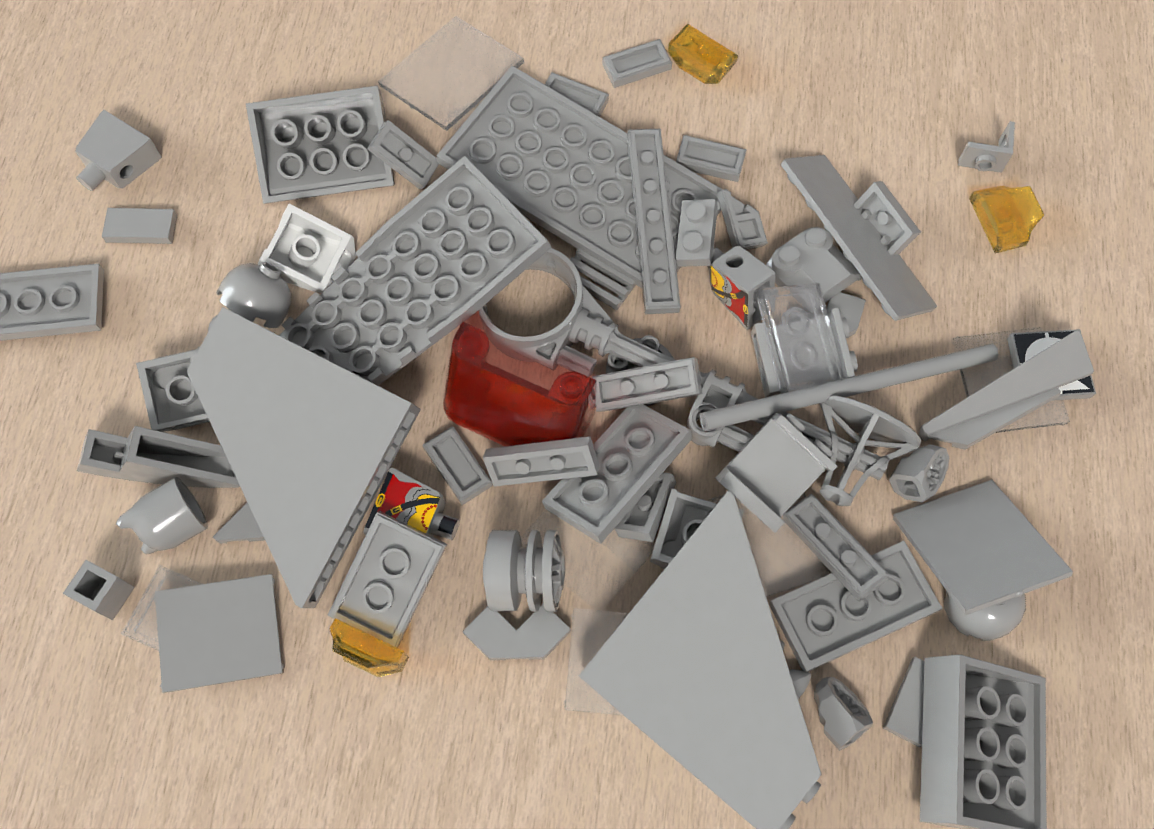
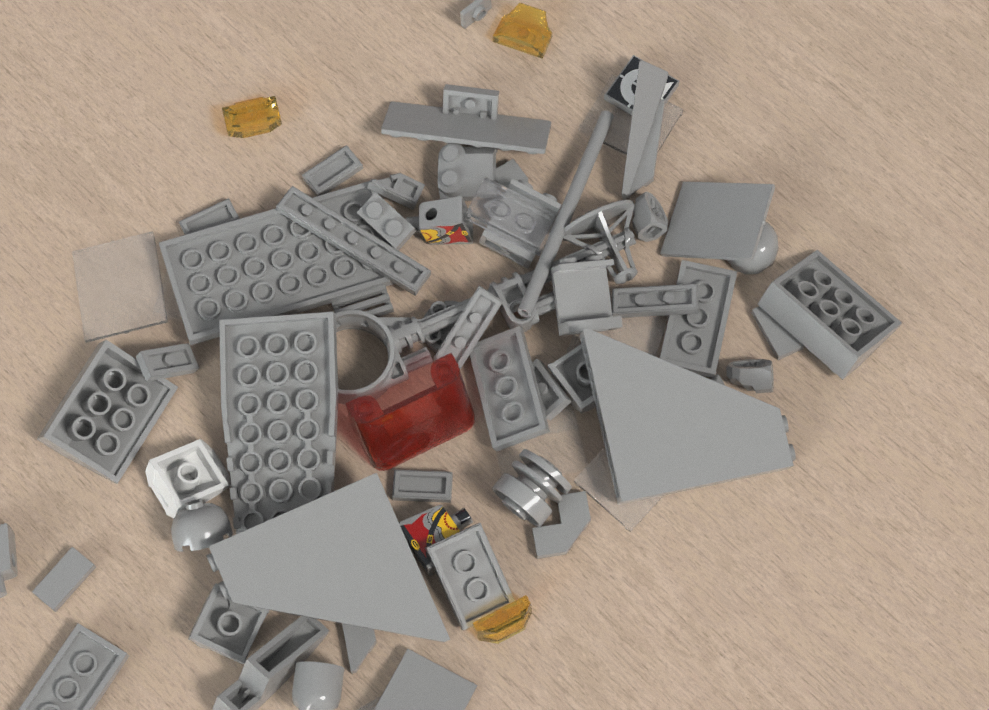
camera: 50 degrees left, 0 degrees up
(541, 461) = (467, 429): light grey plate -> none
(637, 63) = (218, 162): light grey tile -> none

